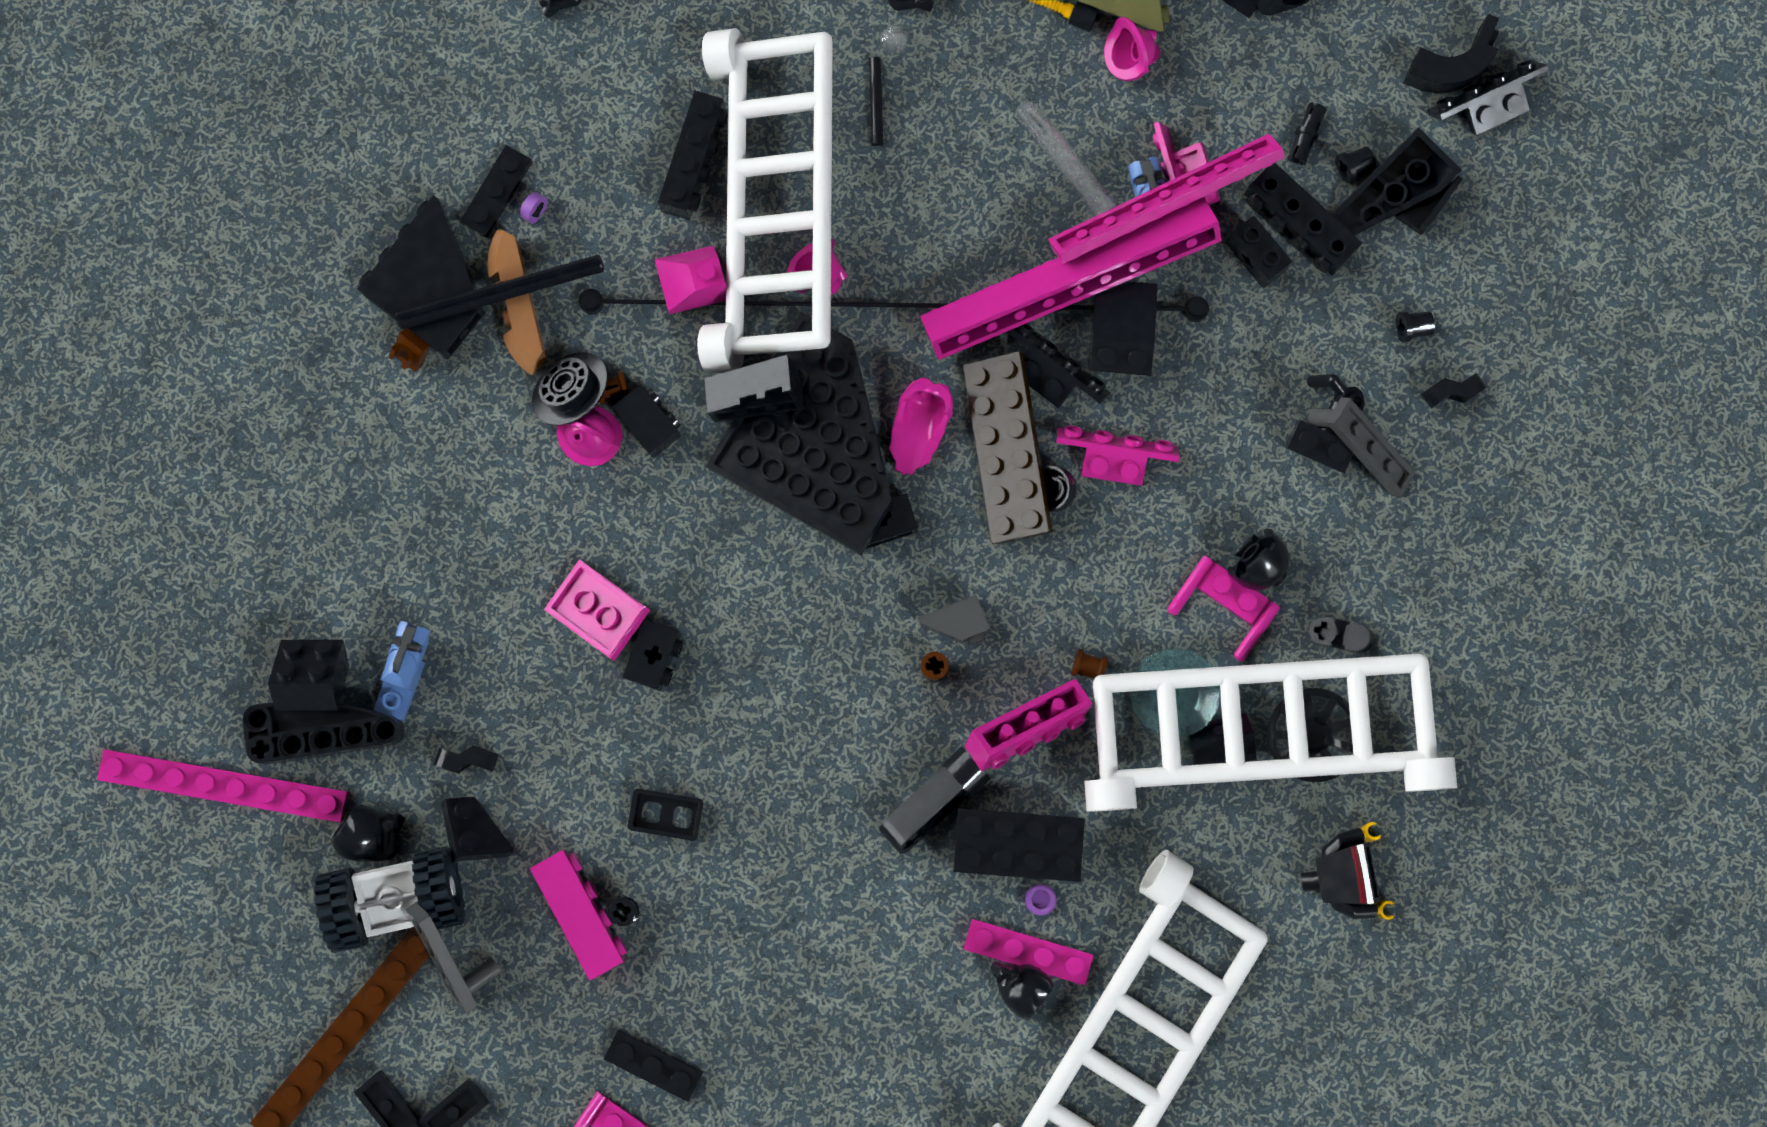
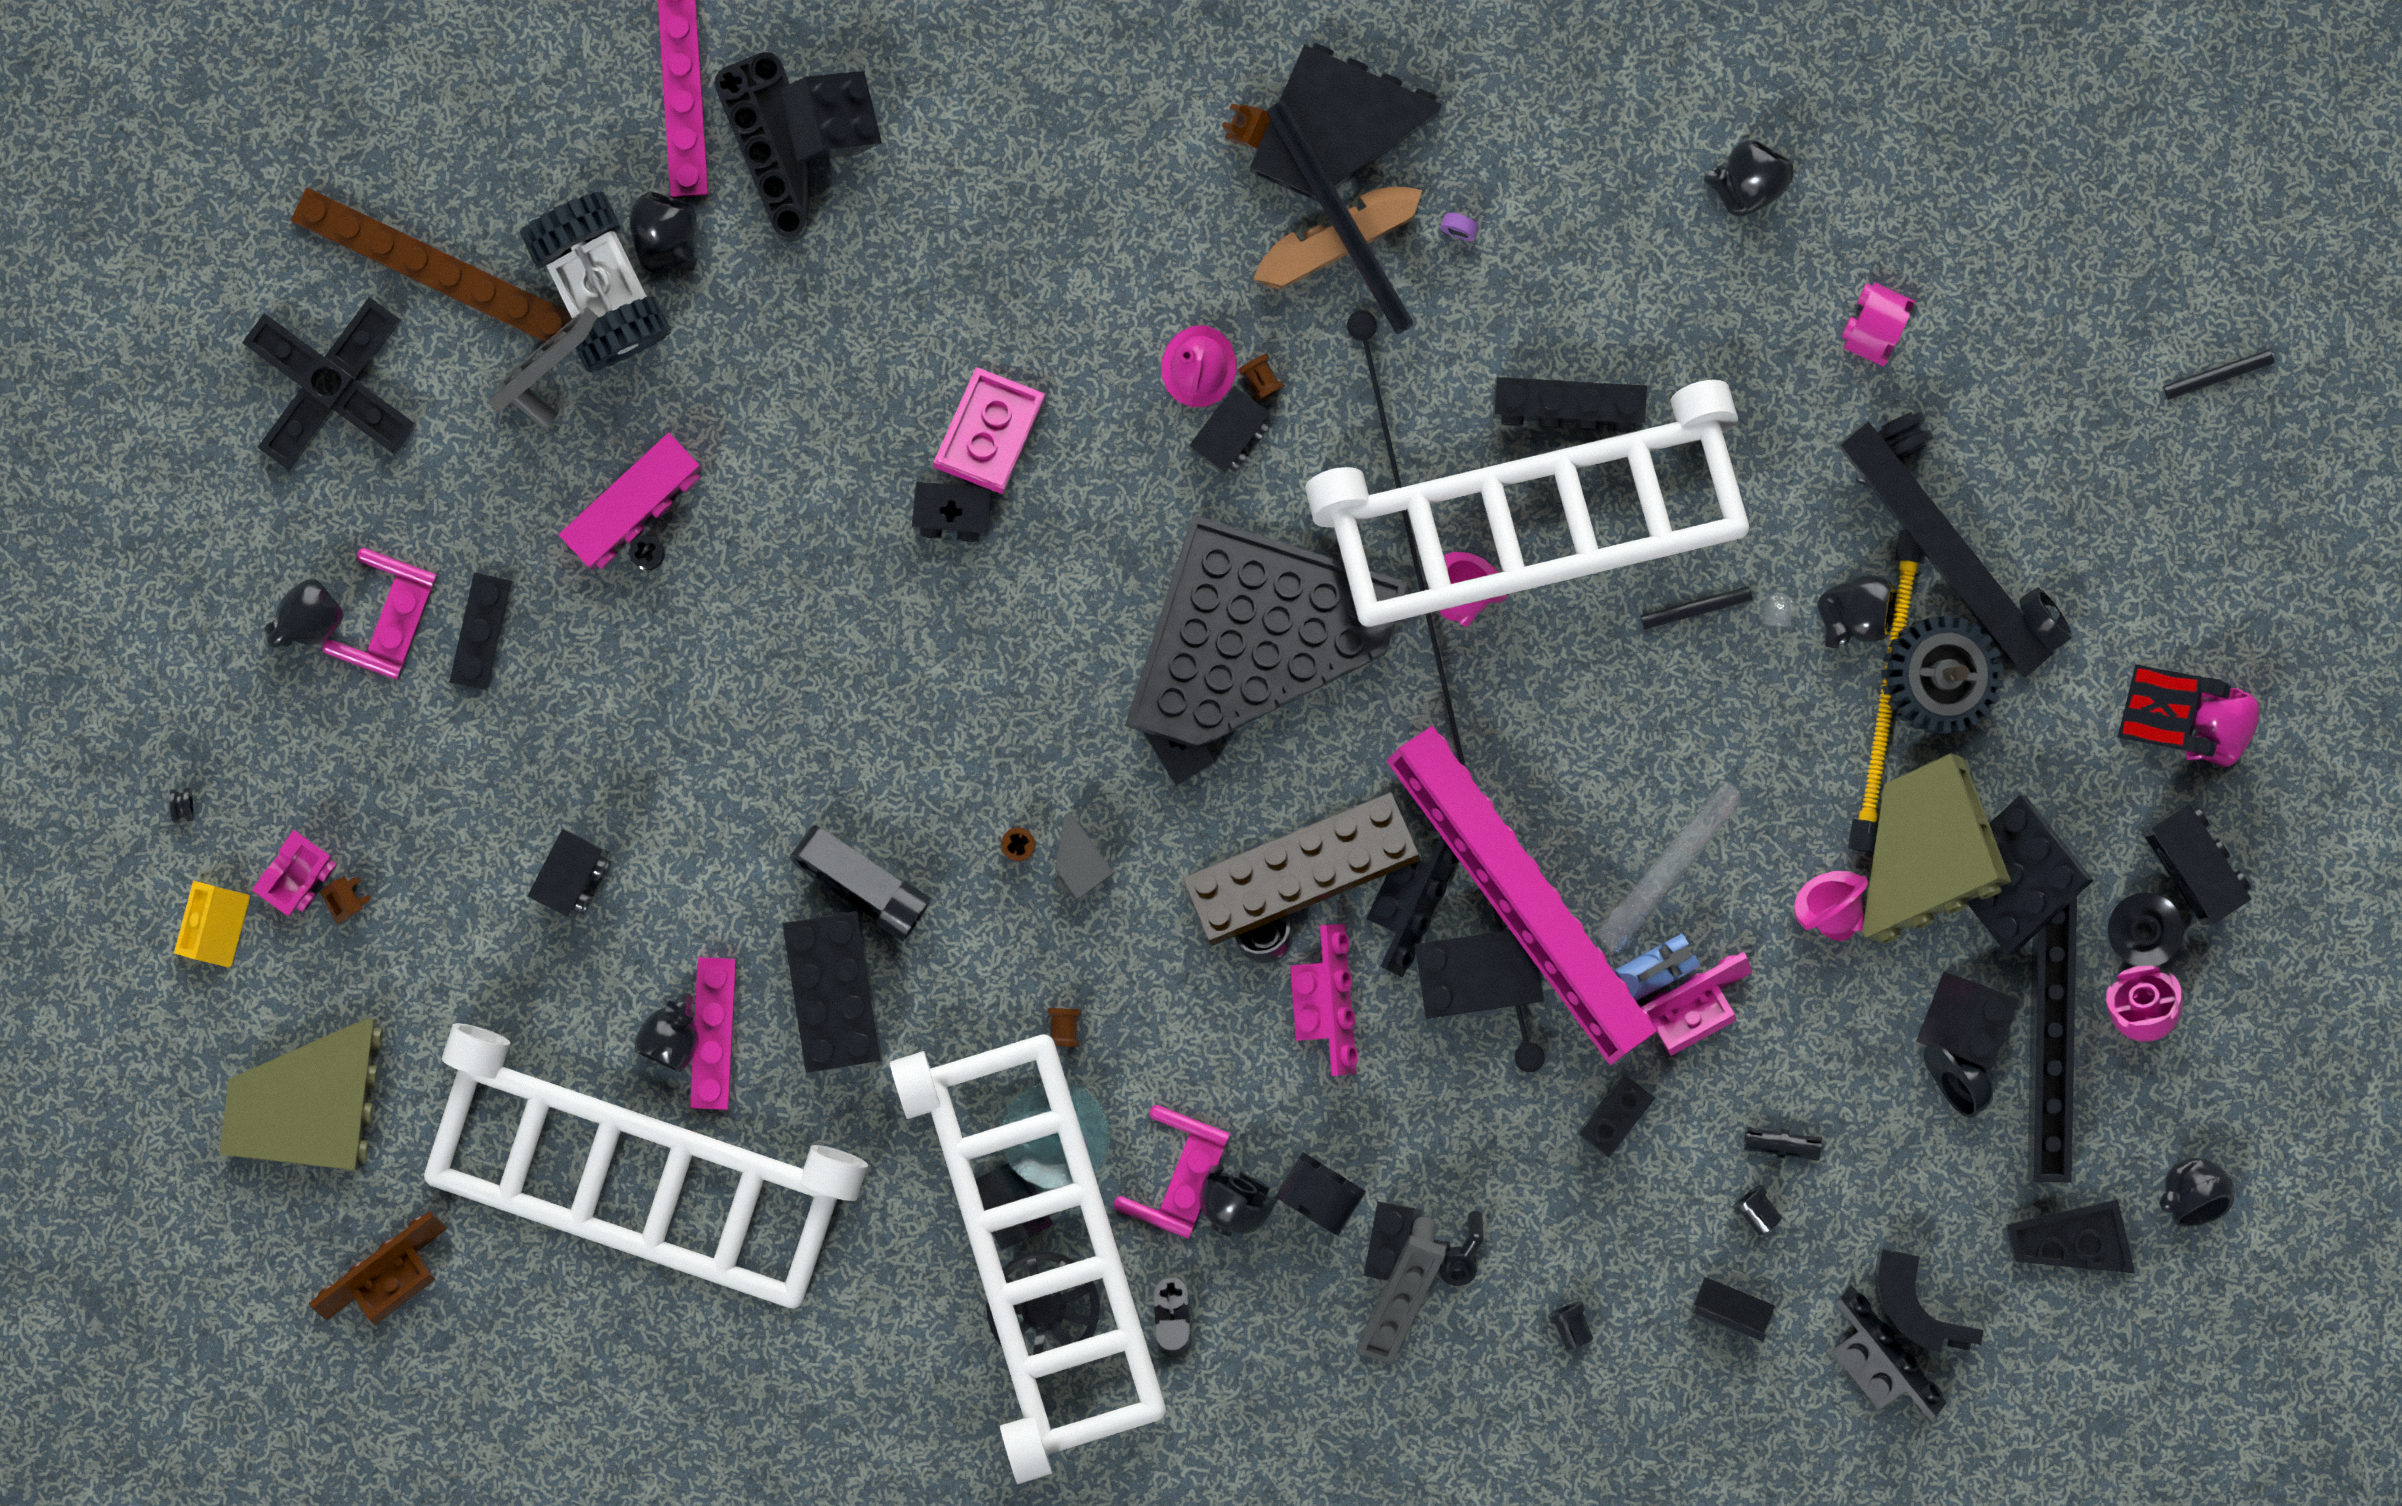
camera: 70 degrees right, 5 degrees up
(402, 670) = (862, 221): medium blue plate -> none
(459, 762) = (772, 313): black piece -> none
(472, 831) = (696, 353): black wing -> none
(496, 191) = (1470, 175): black plate -> none
(569, 389) = (1249, 321): black wheel -> none
(668, 803) = (757, 574): black piece -> none
(691, 279) = (1417, 439): dark pink slope -> none
(754, 390) = (1292, 550): wedge -> none
(871, 1039) = (570, 874): none -> black brick
(919, 424) = (1303, 757): dark pink hair -> none
(1028, 725) = (973, 970): dark pink brick -> none
(1040, 899) = (776, 1033): medium lavender tile -> none
(1166, 198) = (1642, 986): dark pink plate -> none
(1271, 492) = (1320, 1194): none -> black brick
(1302, 218) = (1671, 1160): black brick -> none
(1348, 875) = (889, 1384): black torso -> none
(1404, 179) = (1751, 1274): black wedge -> none
(1453, 390) = (1503, 1400): black piece -> none

